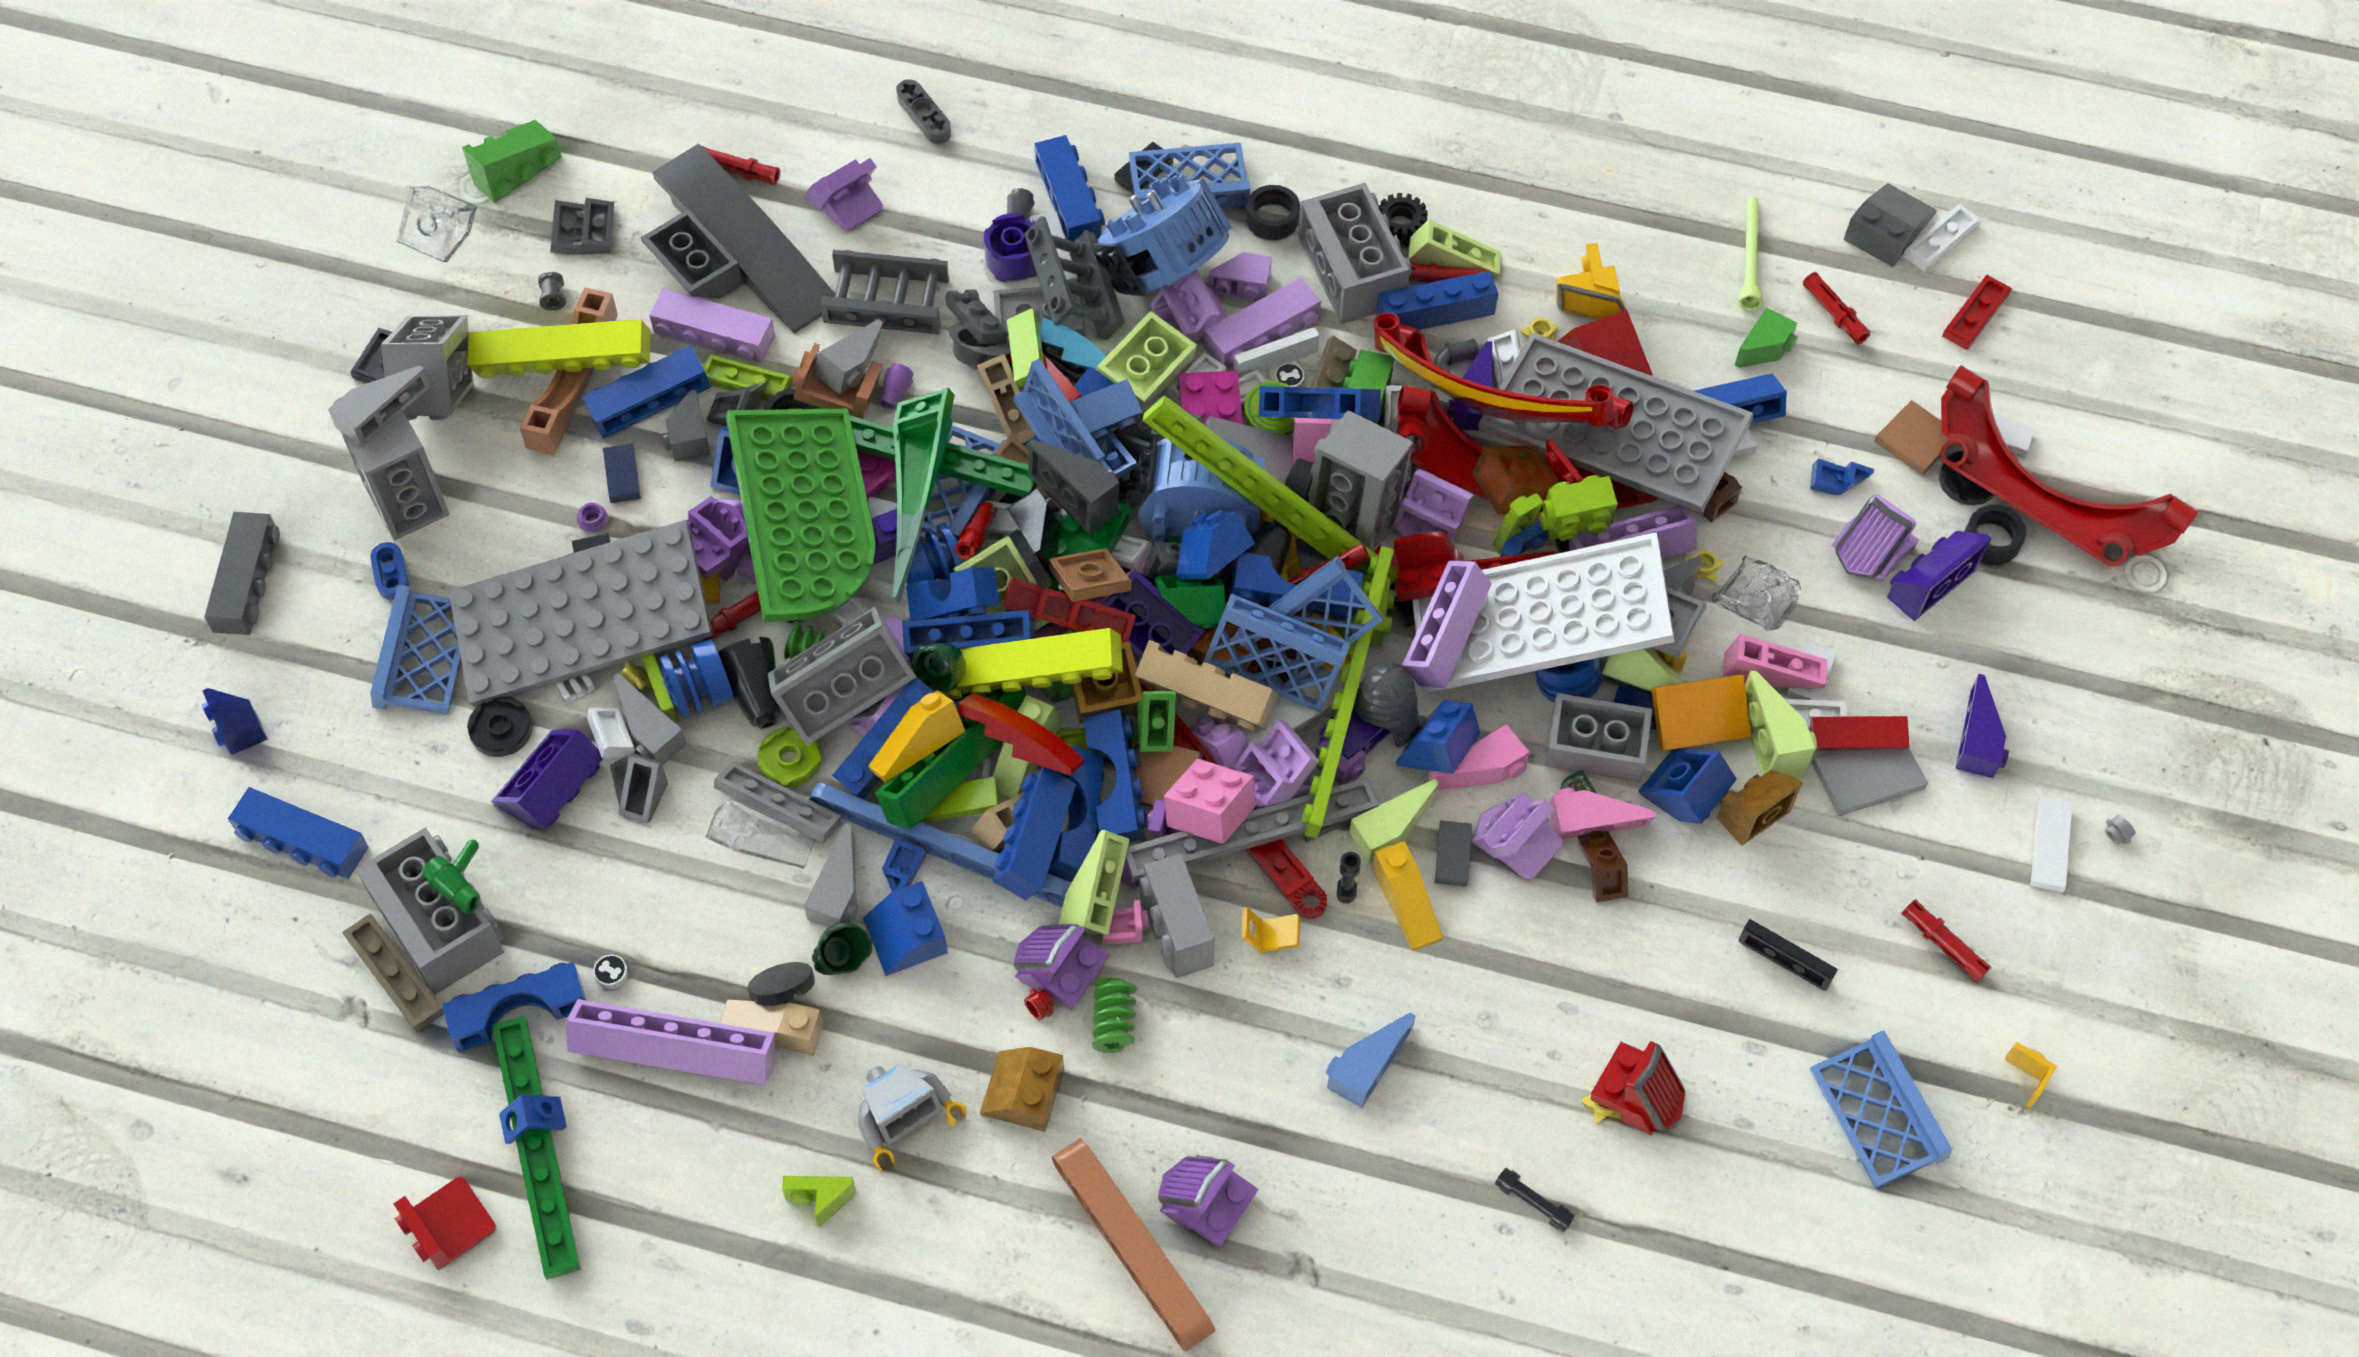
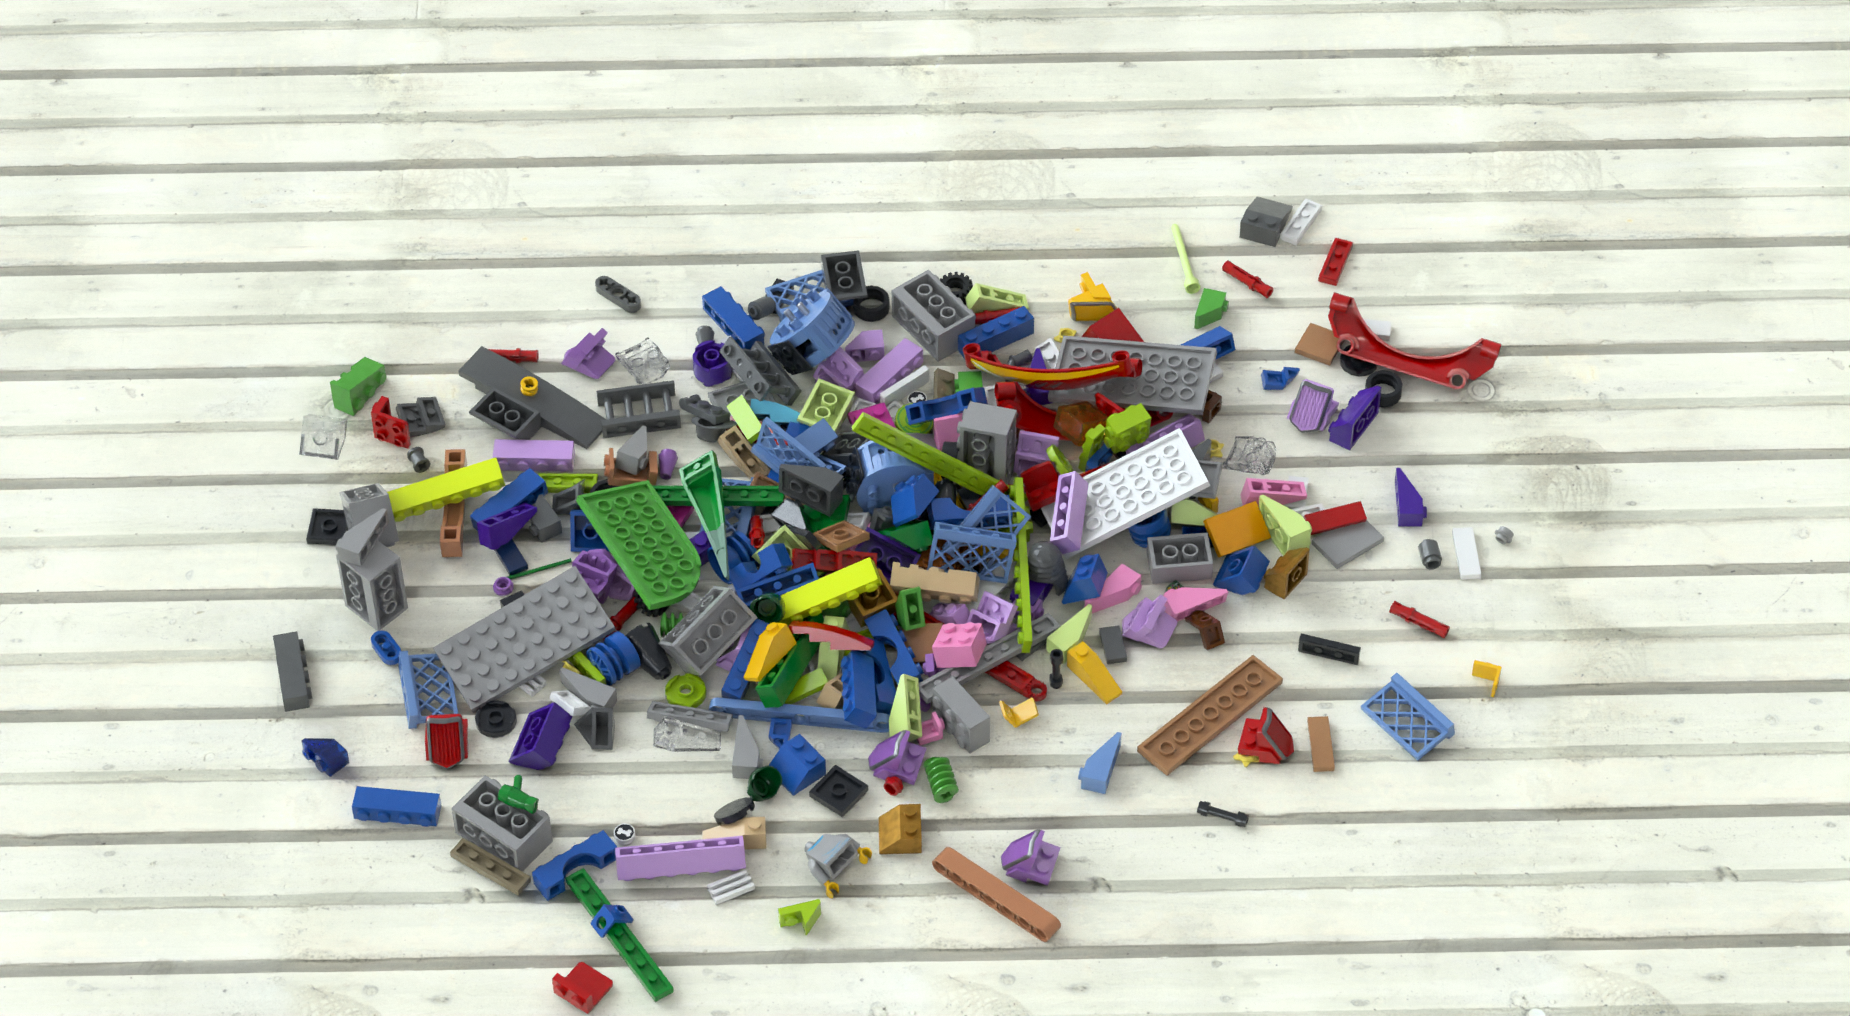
camera: 15 degrees left, 10 degrees down
(411, 744) = (446, 739): none -> red piece
(523, 226) = (388, 427): none -> red bracket
(620, 426) = (504, 526): none -> dark purple slope
(652, 503) = (539, 569): none -> green axle
(734, 1097) = (729, 884): none -> white tile
(739, 211) = (529, 381): none -> yellow bush
(919, 222) = (644, 361): none -> clear slope
(953, 990) = (838, 790): none -> black plate
(1112, 181) = (761, 307): none -> dark grey brick
(1241, 162) = (844, 275): none -> dark grey slope
(1465, 536) = (1061, 462): none -> lime tile
(1565, 1018) = (1209, 715): none -> medium nougat plate
(1727, 1117) = (1320, 744): none -> medium nougat tile
(1993, 832) = (1430, 554): none -> dark grey brick

